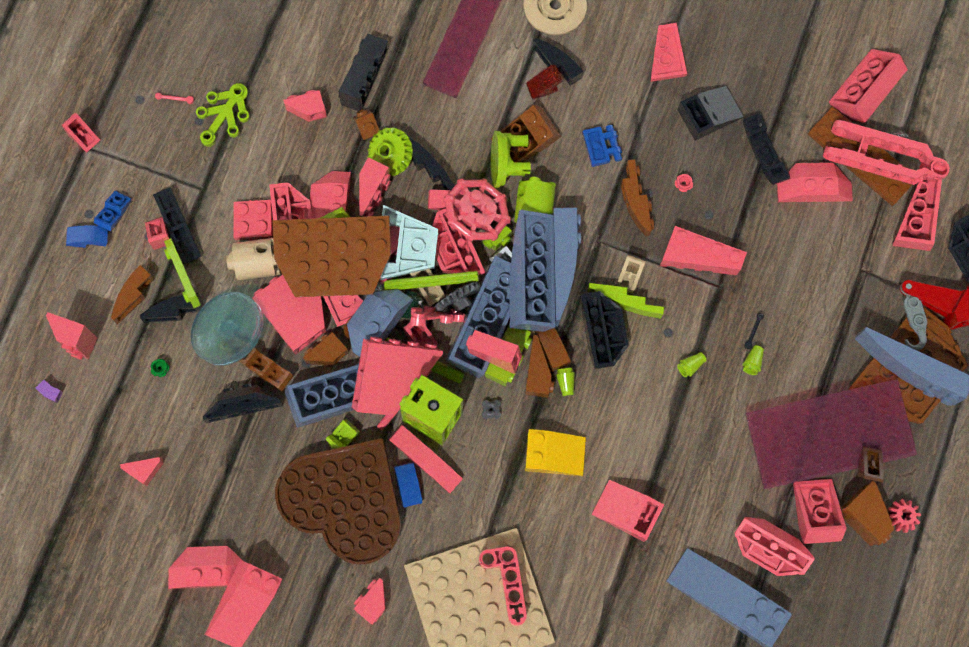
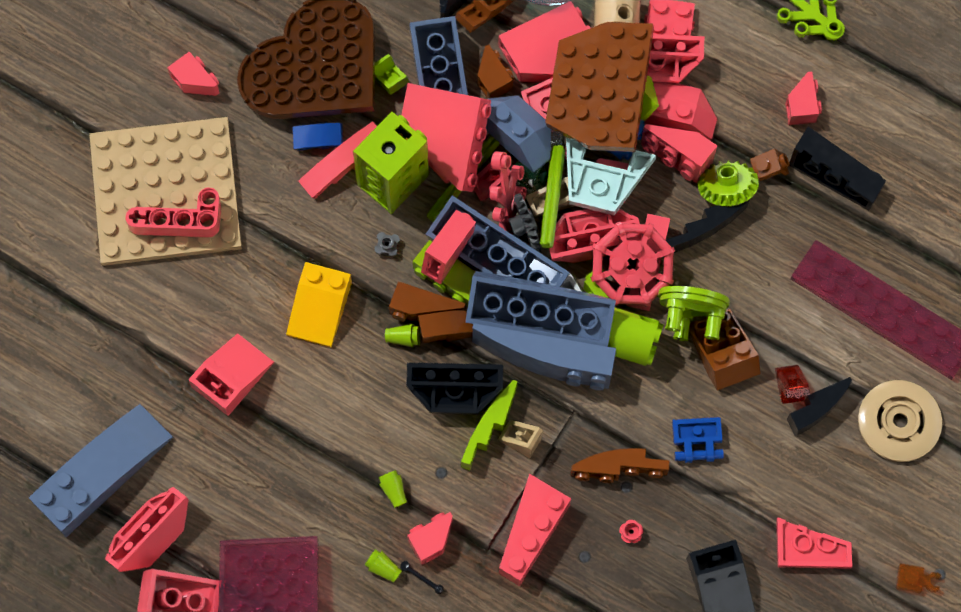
camera: 105 degrees right, 5 degrees down
(724, 326) = (430, 540): none -> coral slope

